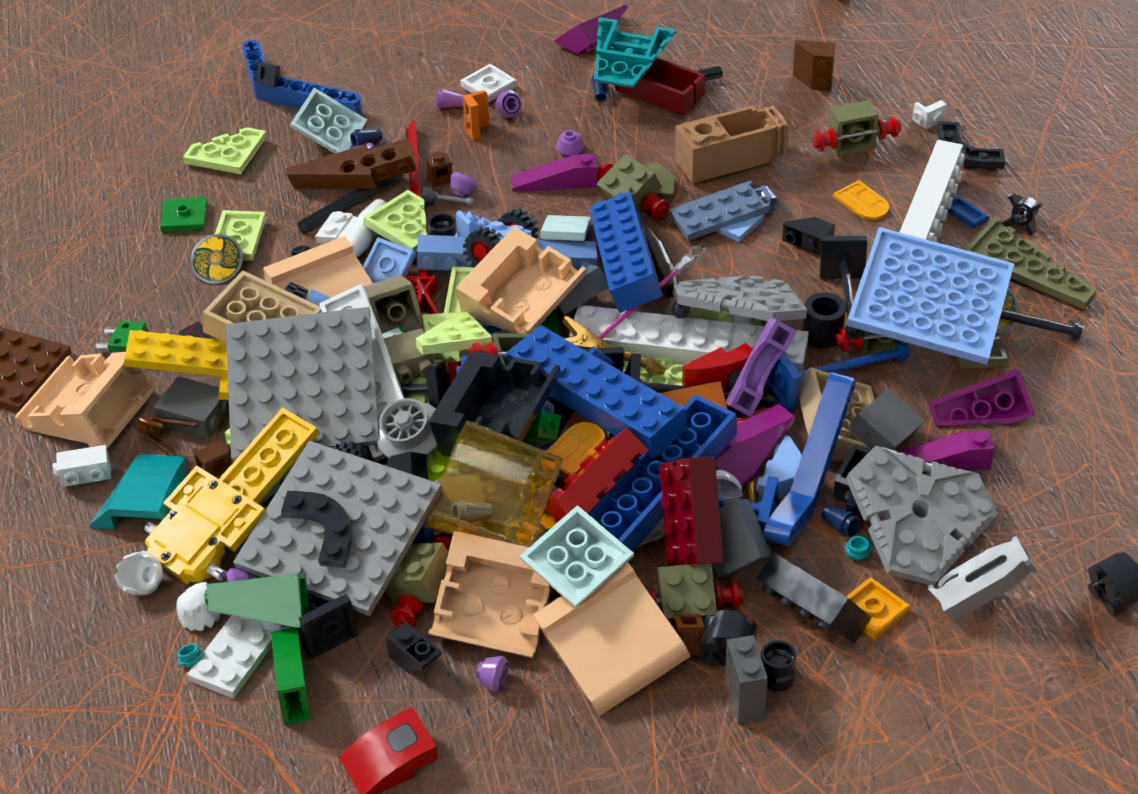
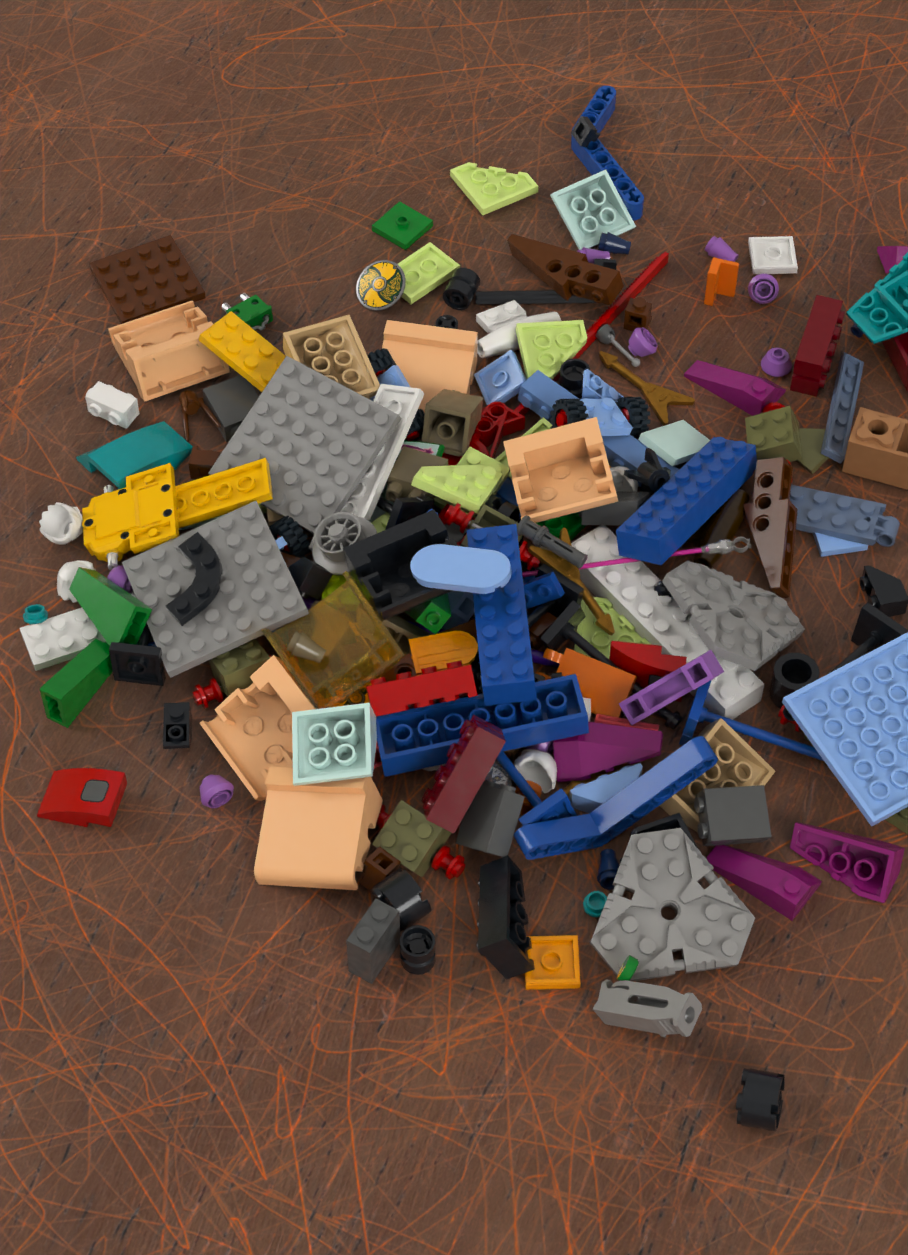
camera: 40 degrees right, 10 degrees up
(285, 225) = (461, 288): none -> black wheel
(496, 212) = (655, 395): none -> pearl gold piece
(547, 368) = (460, 568): none -> light blue tile
(578, 328) = (541, 537): none -> dark grey pin
(581, 249) = (650, 473): none -> black brick
(591, 115) = (817, 346): none -> dark red piece
(649, 144) = (842, 408): none -> sand blue tile
(692, 228) = (774, 510): none -> reddish brown brick
(939, 565) = (628, 969): none -> green tile

